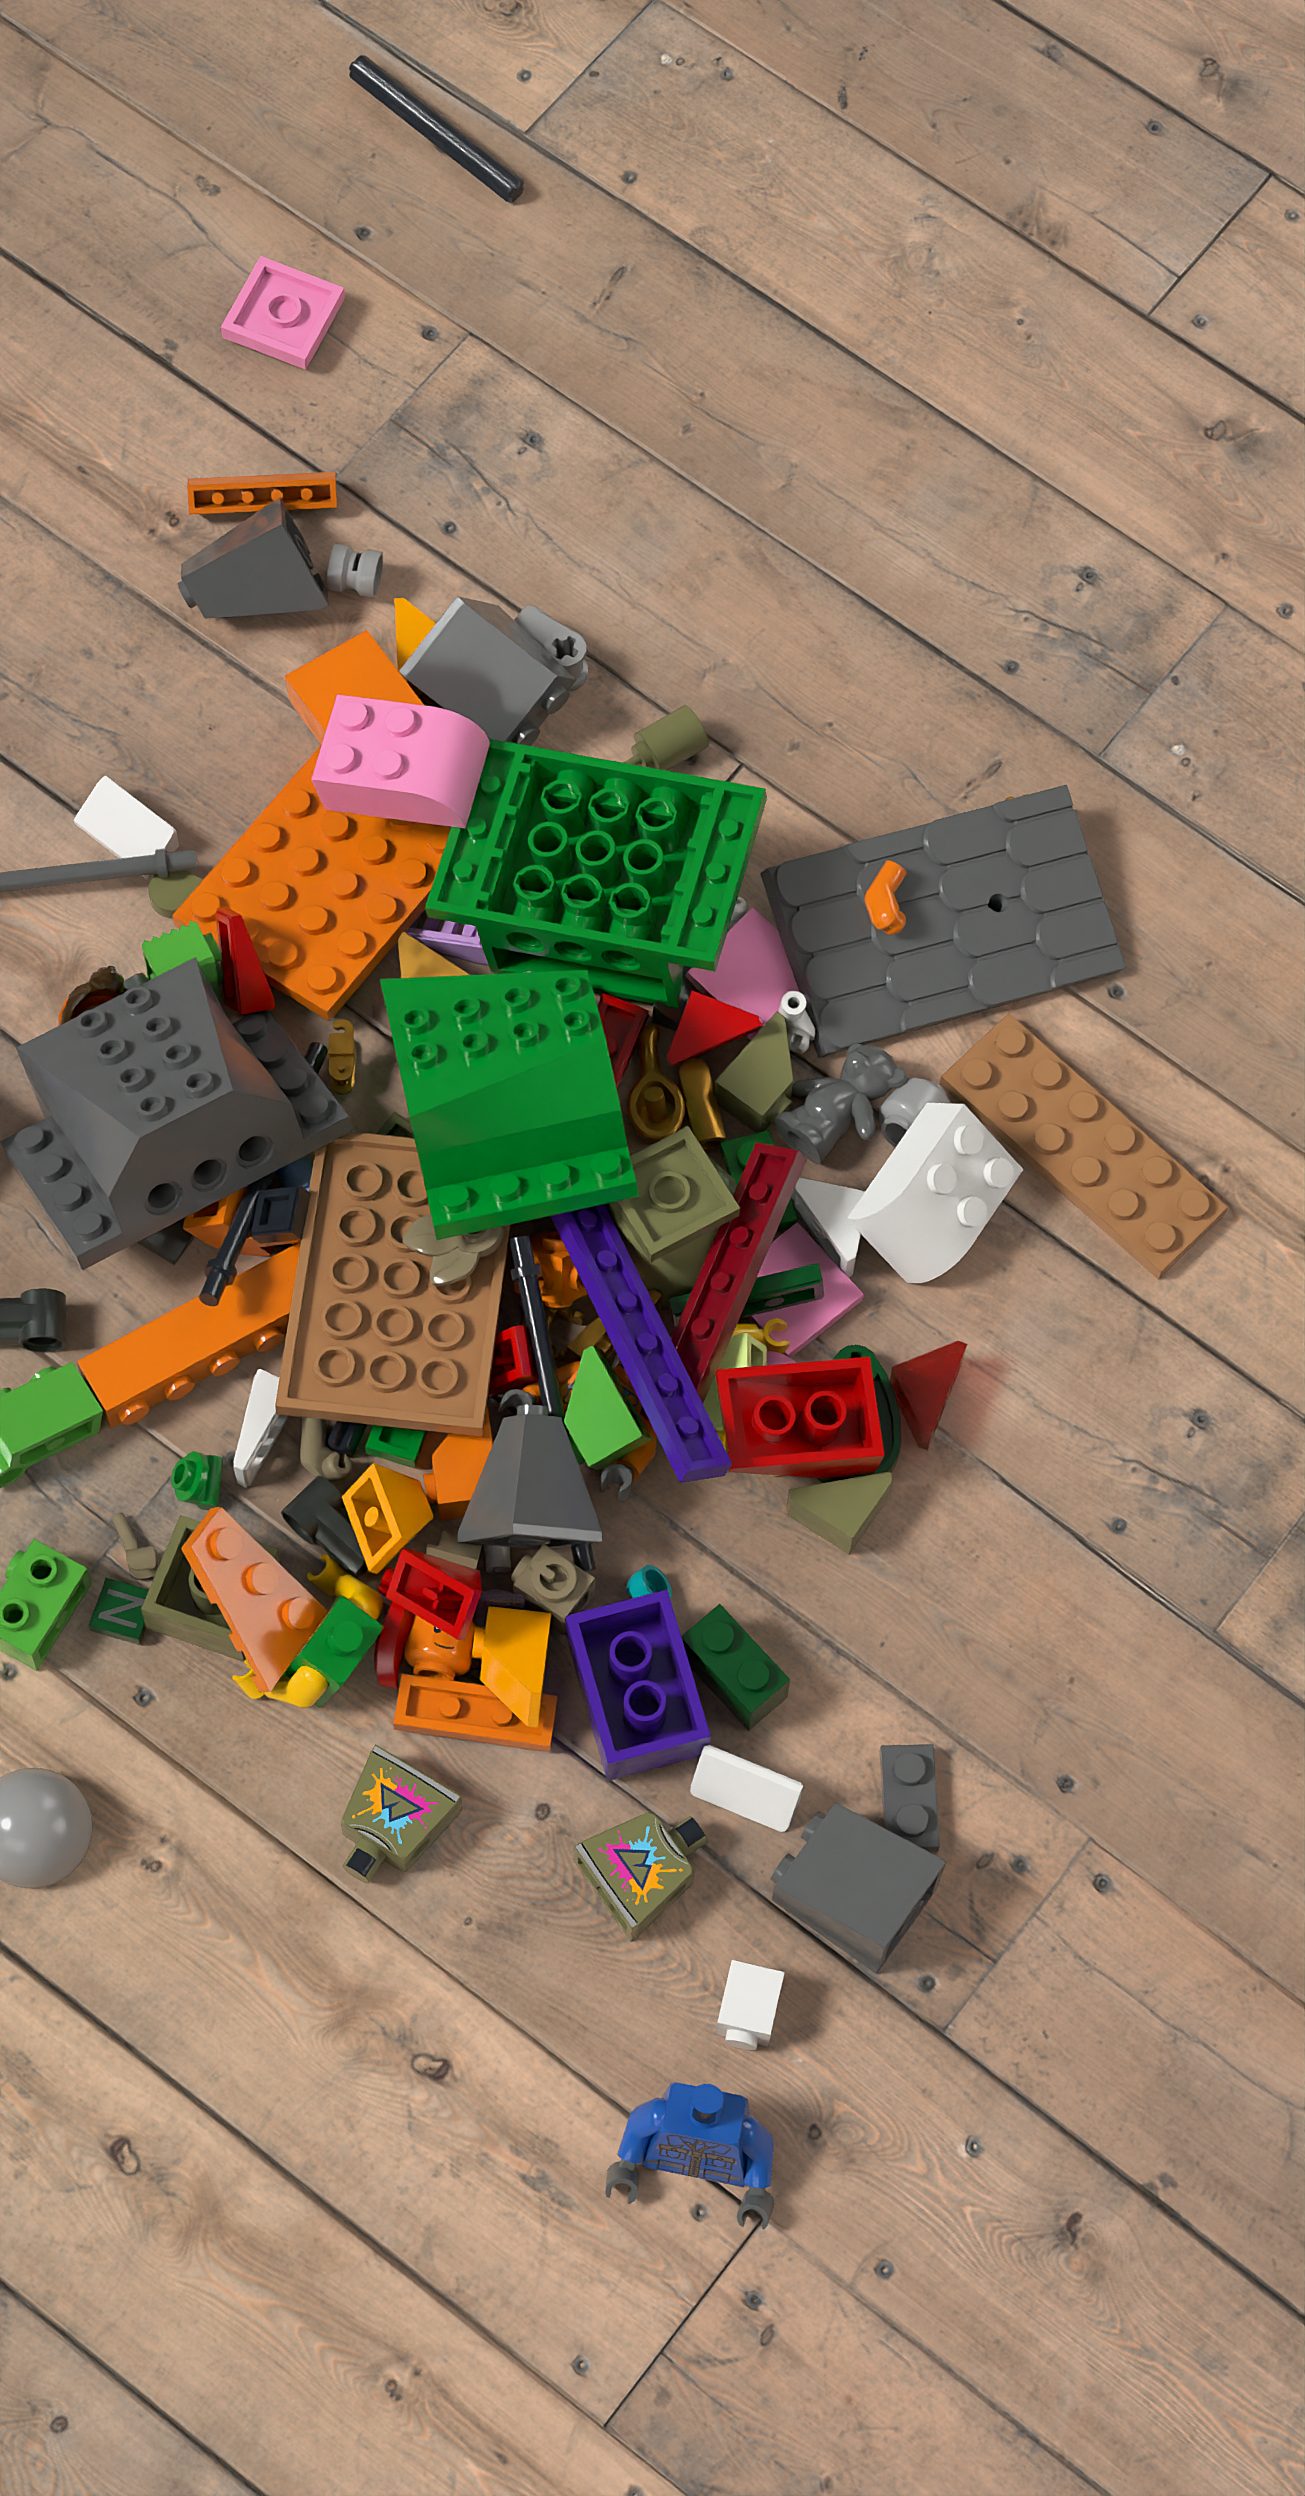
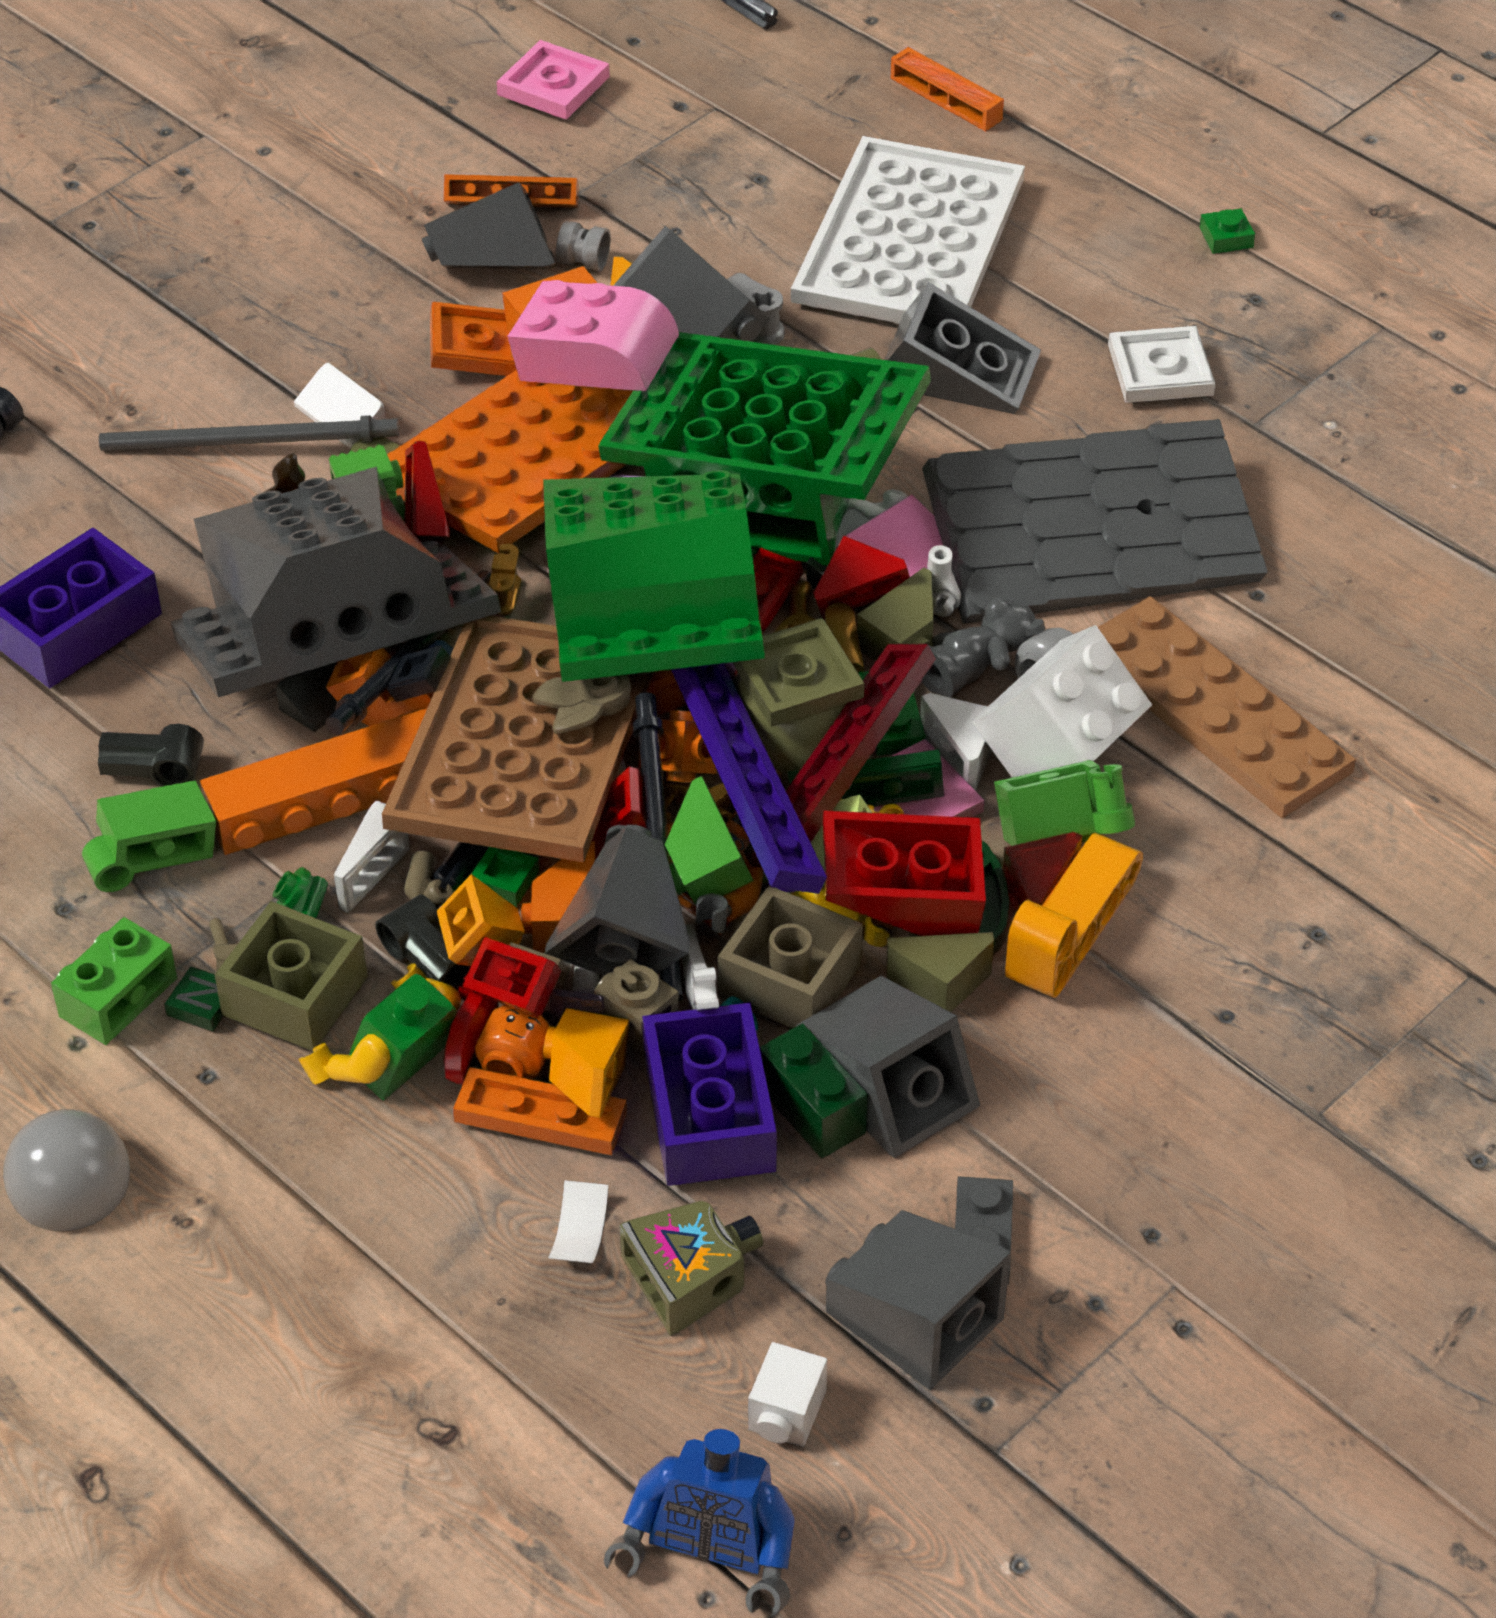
camera: 10 degrees right, 20 degrees down
(254, 720) = (470, 339): none -> orange plate
(257, 1596) = (327, 961): orange wing -> none
(394, 1815) = (441, 1190): olive torso -> none
(530, 1834) = (580, 1222): none -> white sticker
(609, 1555) = (698, 978): none -> white piece
(696, 1526) = (789, 958): none -> dark tan brick
(708, 519) = (905, 222): none -> white plate
(727, 288) = (947, 89): none -> orange piece
(746, 1788) = (811, 1200): white slope -> none
(781, 697) = (966, 352): none -> dark grey slope
(808, 1623) = (903, 1057): none -> dark grey slope
(881, 901) = (1035, 489): orange arm -> none
(944, 1303) = (1063, 802): none -> bright green hinge
(964, 1429) = (1054, 938): none -> light orange beam
(996, 688) = (1161, 364): none -> white plate
(1052, 480) = (1227, 230): none -> green plate

